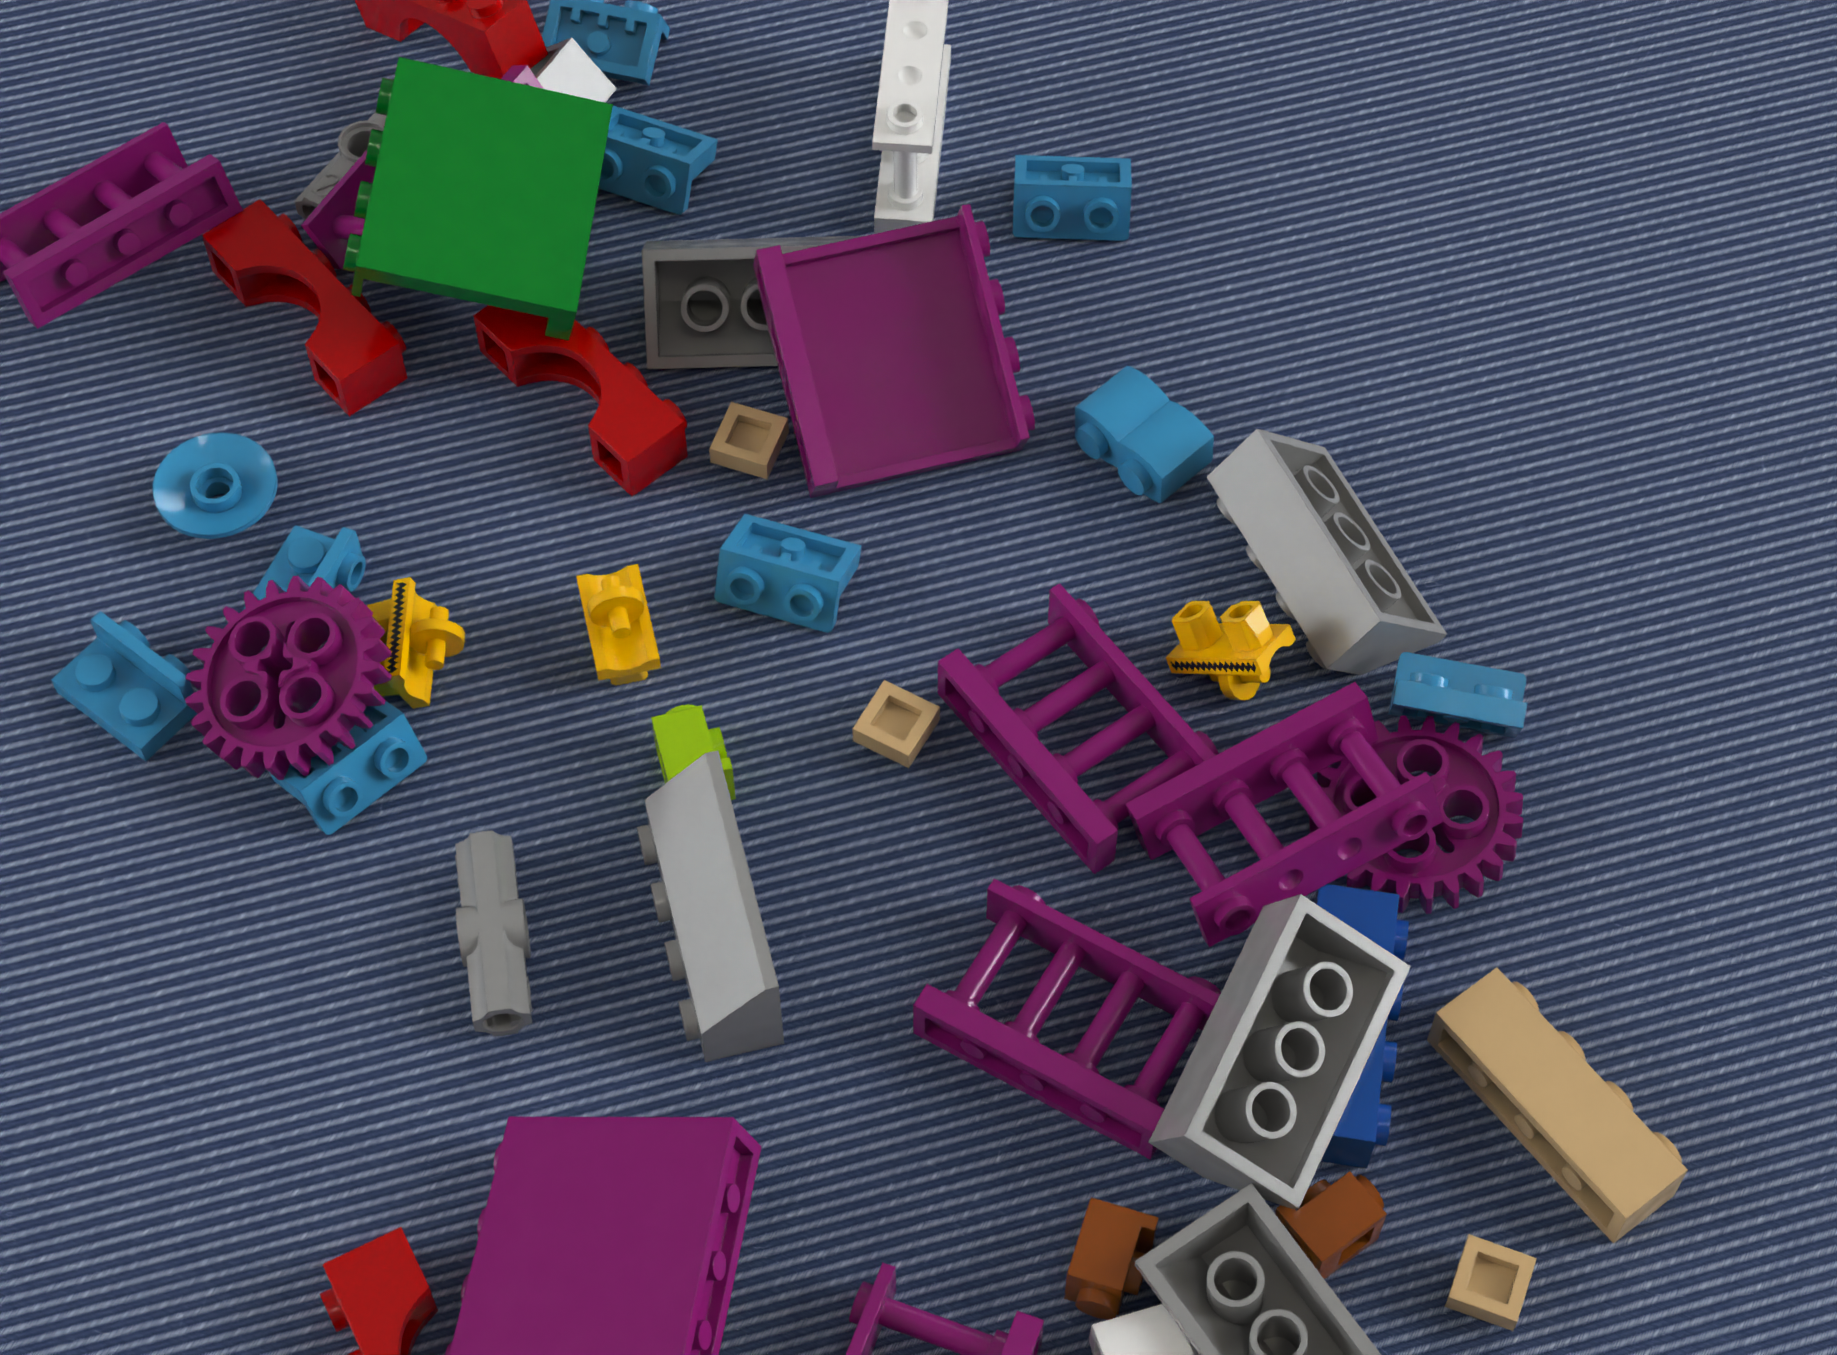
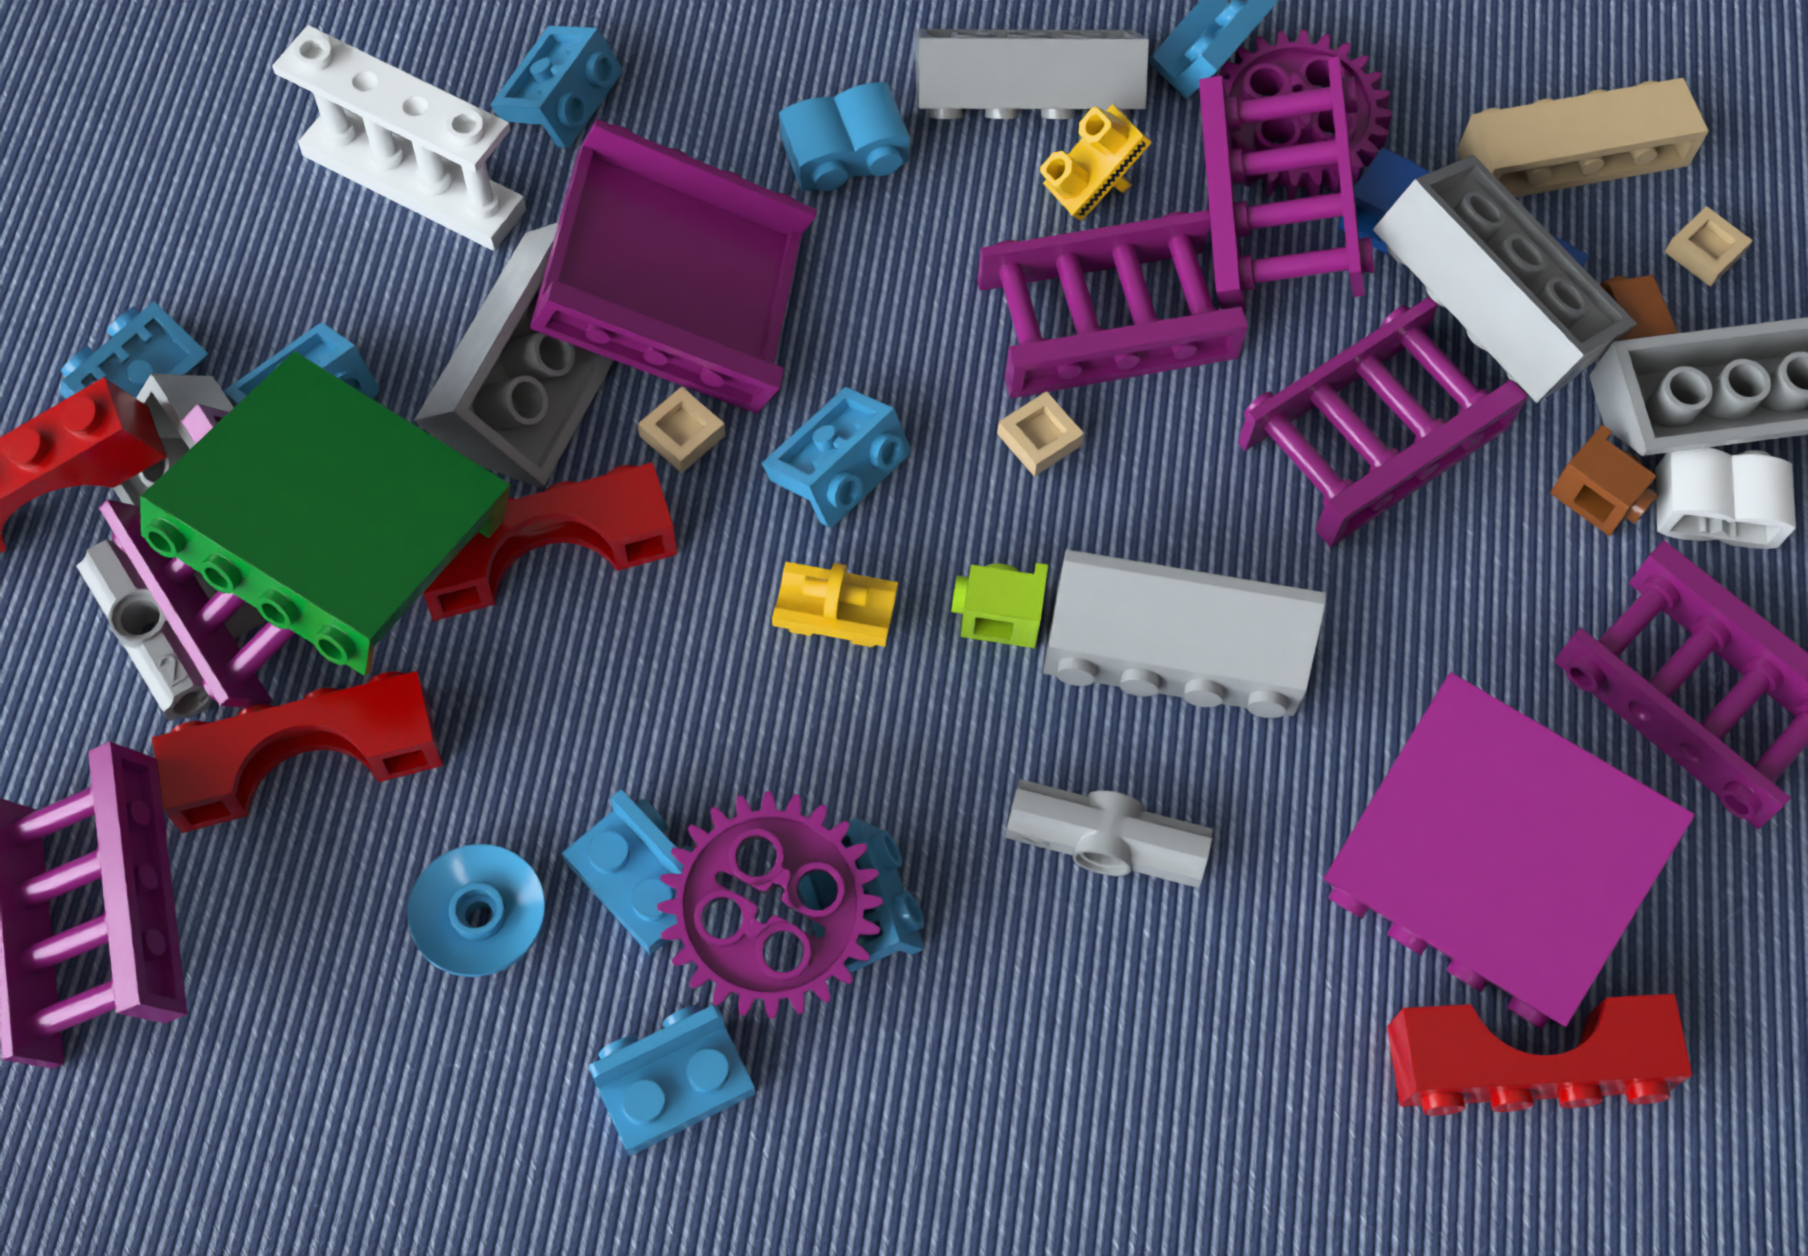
camera: 70 degrees left, 5 degrees up
(418, 640) = (727, 783): yellow hips -> none

